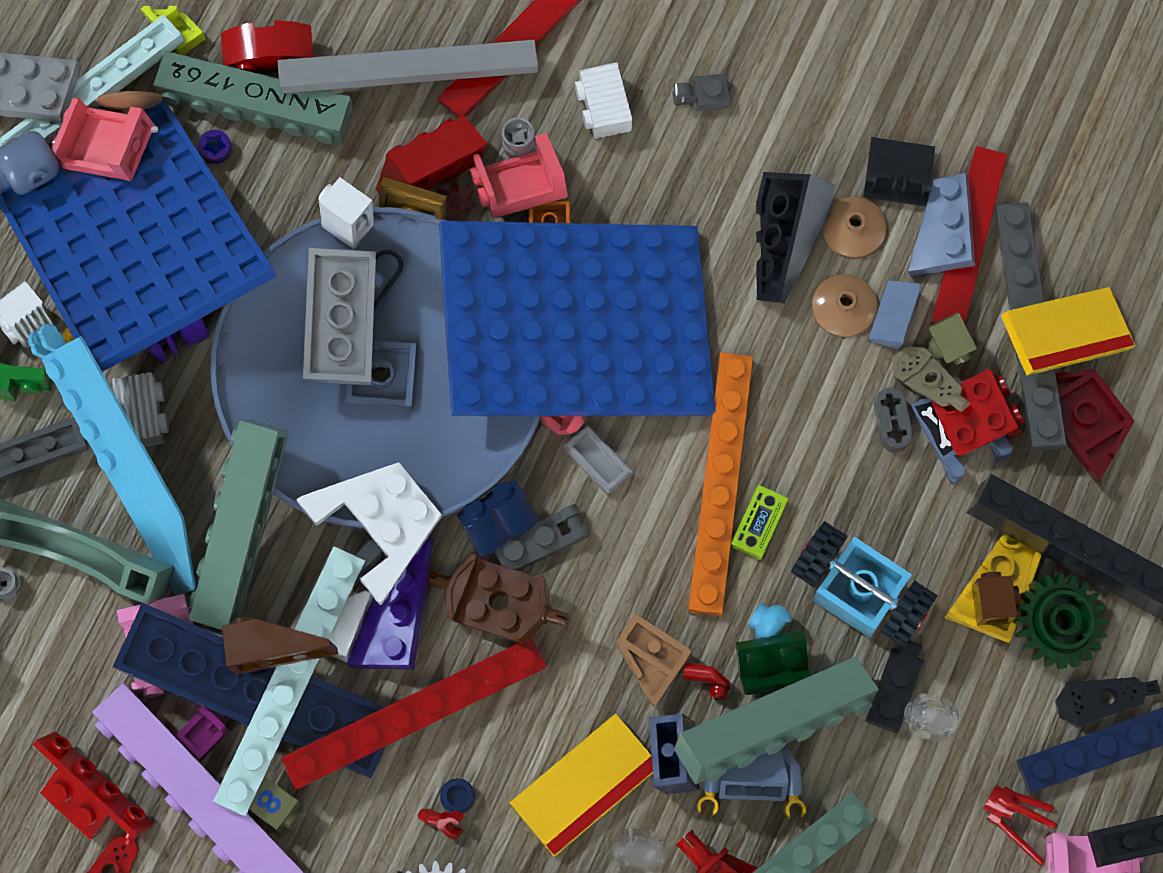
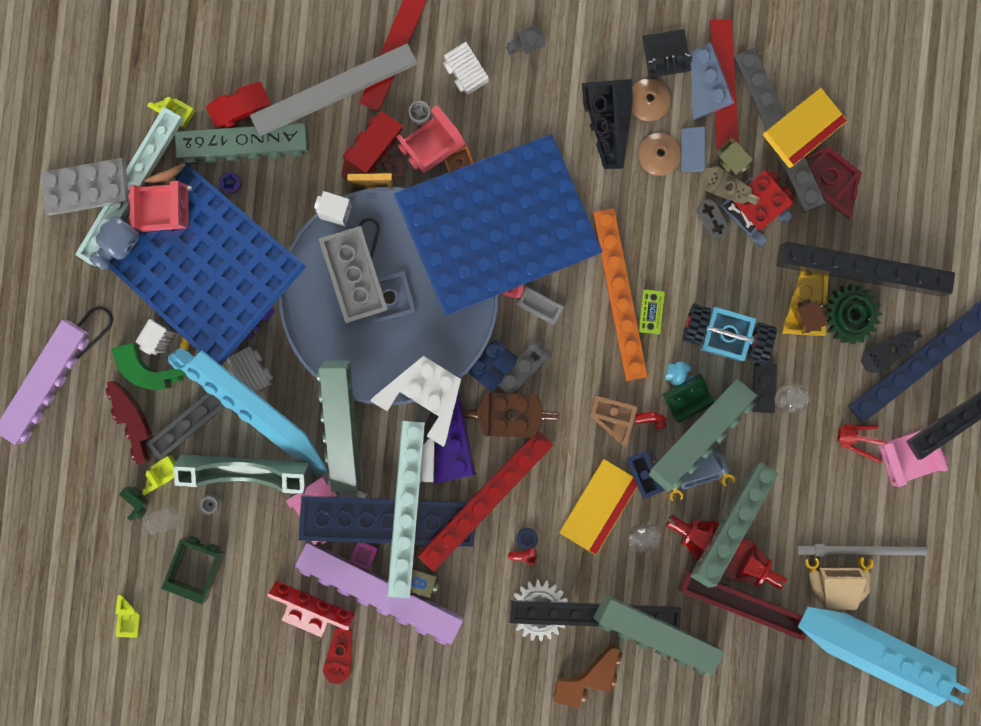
camera: 15 degrees left, 15 degrees up
(264, 645) = (383, 497): reddish brown slope -> none

